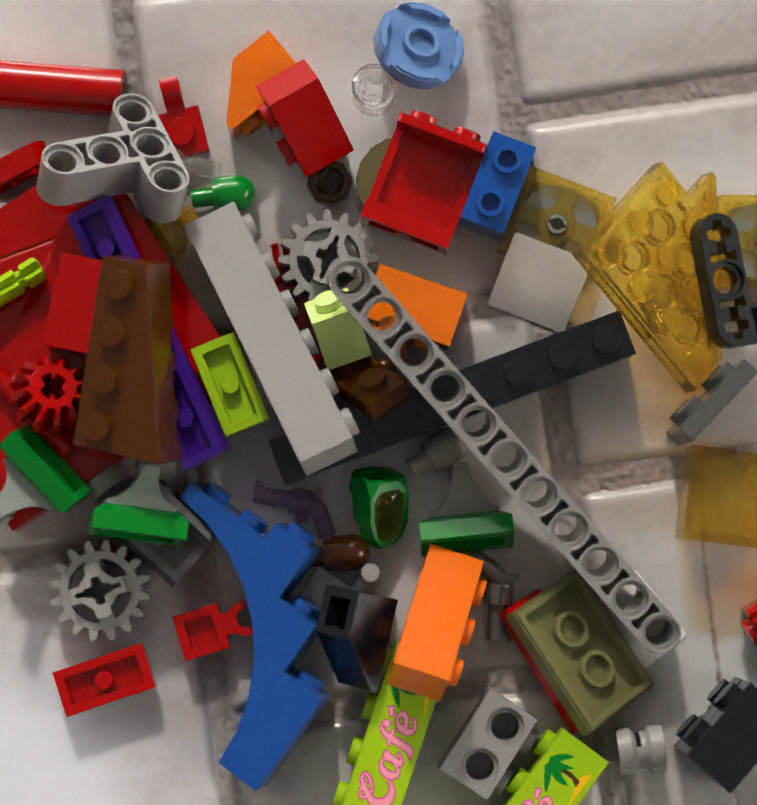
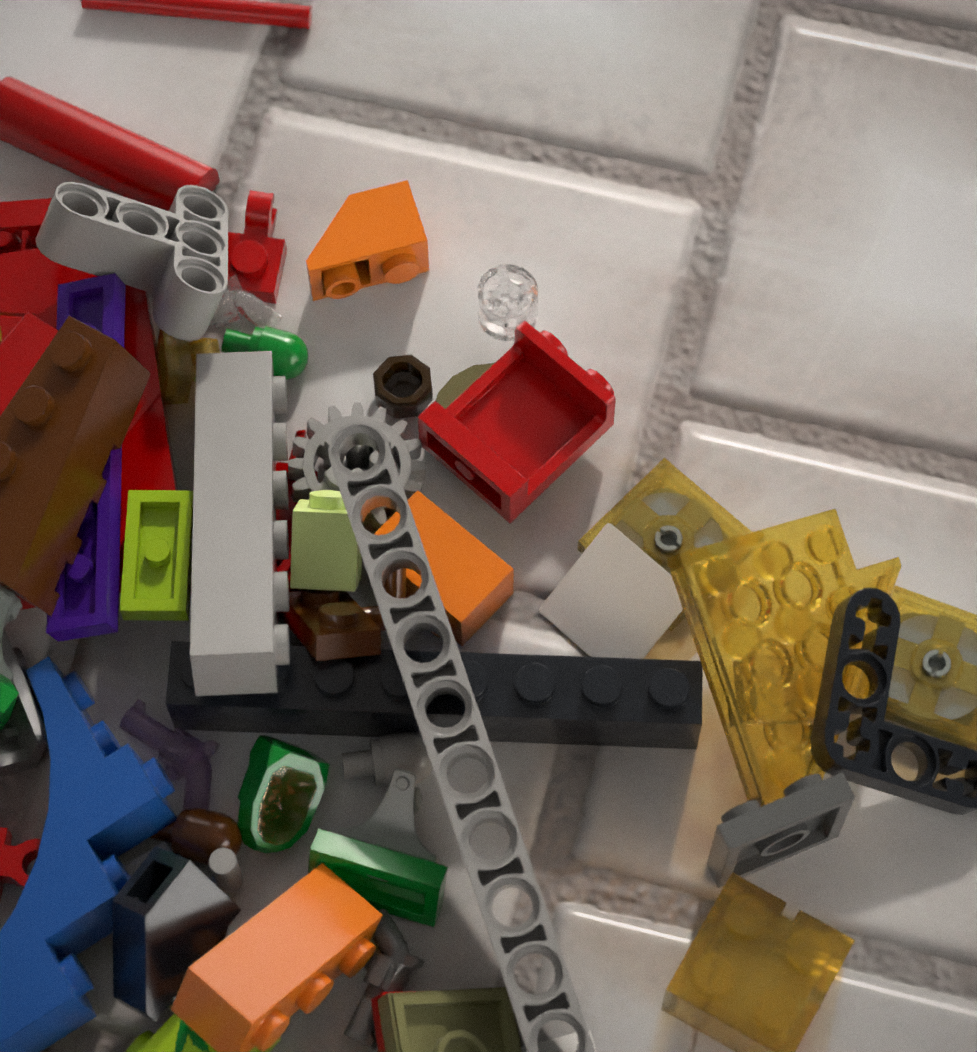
camera: 25 degrees right, 20 degrees down
(304, 119) = (403, 290): red brick -> none
(418, 46) = (584, 271): medium blue tile -> none
(496, 186) = (608, 461): blue brick -> none

